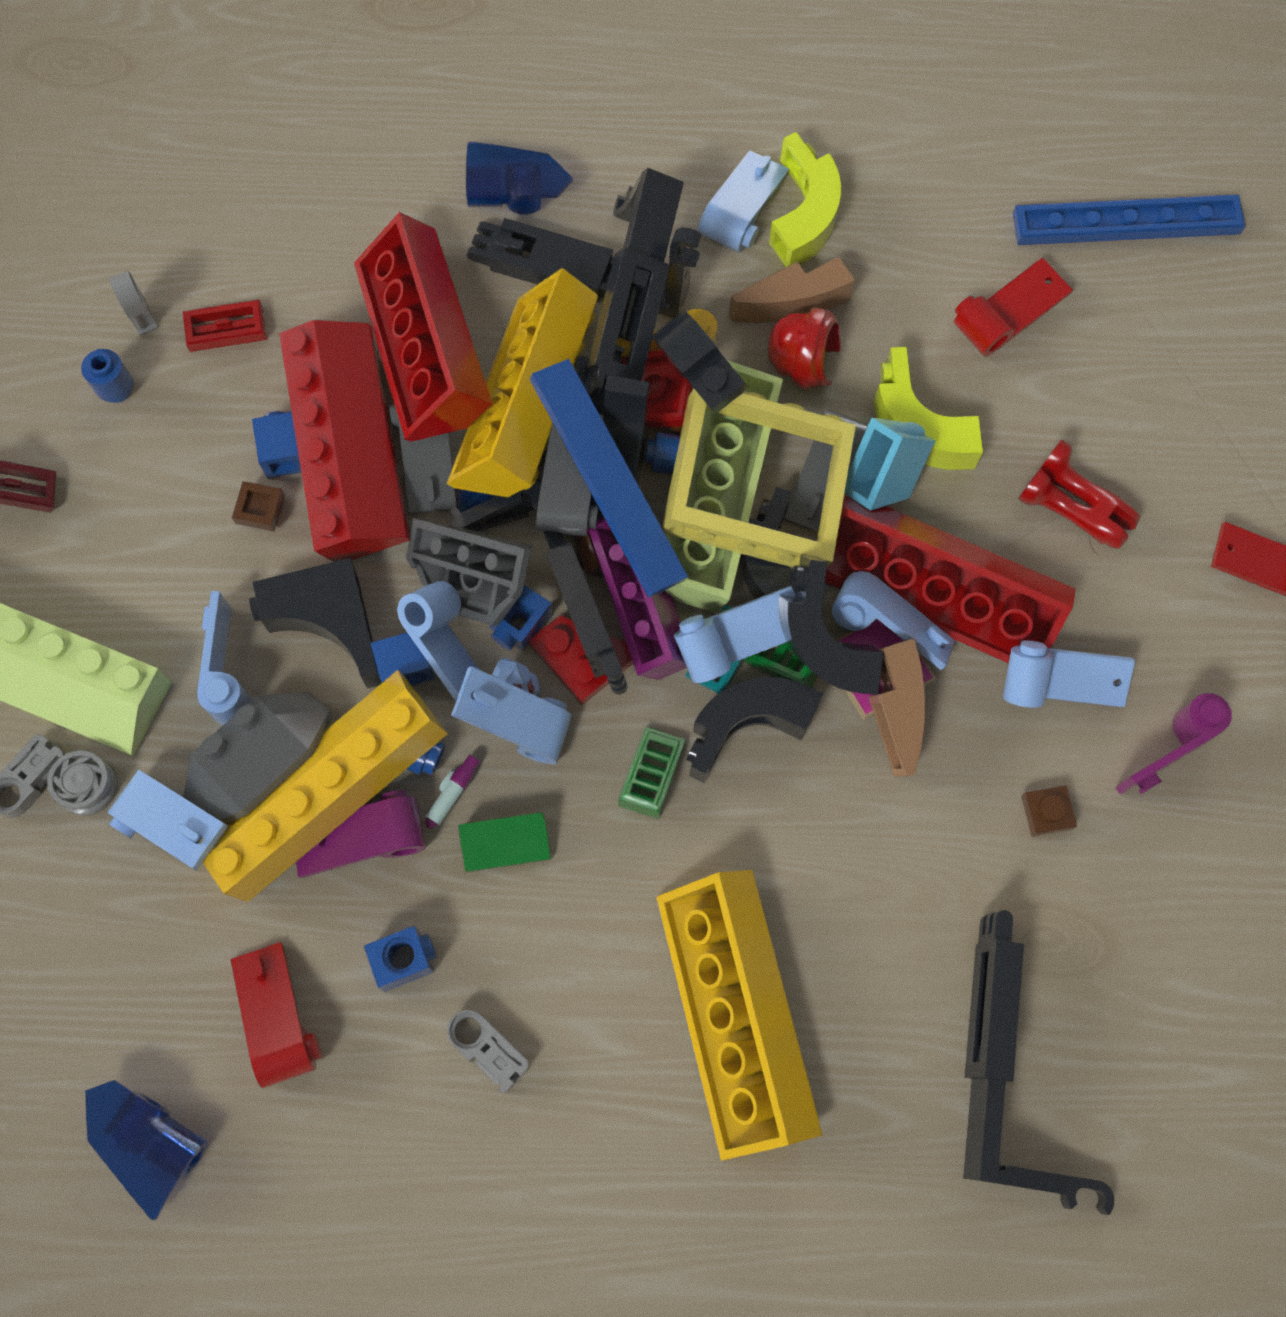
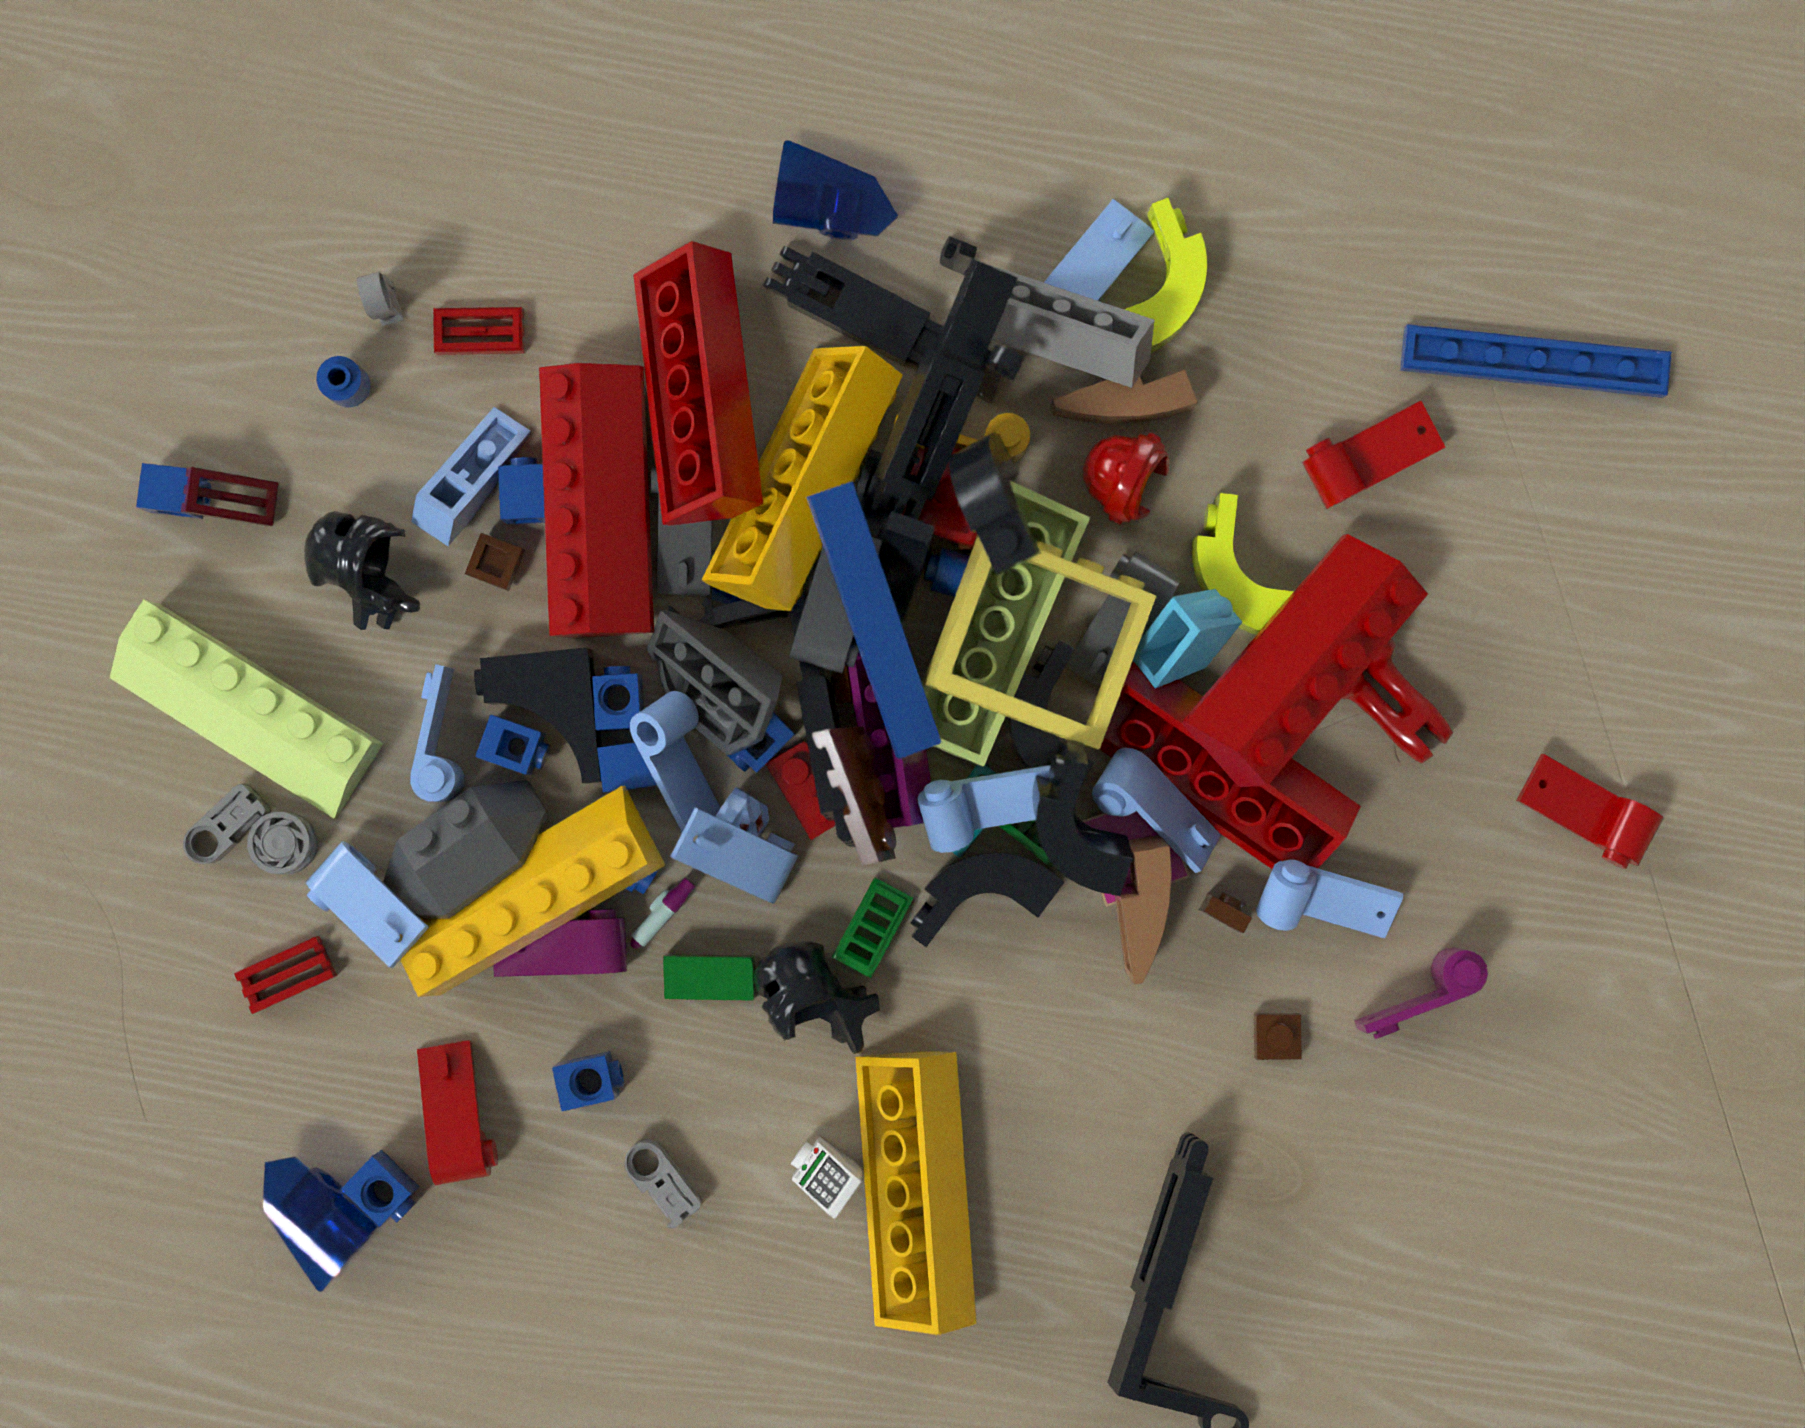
camera: 10 degrees right, 15 degrees up
(62, 927) = (251, 990): none -> red tile
(130, 517) = (356, 559): none -> black piece
(188, 1096) = (361, 1189): none -> blue brick
(223, 441) = (467, 477): none -> light blue slope
(282, 649) = (497, 742): none -> blue brick
(382, 622) = (605, 717): none -> blue brick
(596, 837) = (803, 989): none -> black piece
(626, 648) = (855, 777): none -> reddish brown wing
(647, 1008) = (826, 1175): none -> white slope
(746, 235) = (1076, 331): none -> light grey brick
(976, 703) = (1226, 910): none -> reddish brown plate
(996, 466) = (1304, 661): none -> red slope

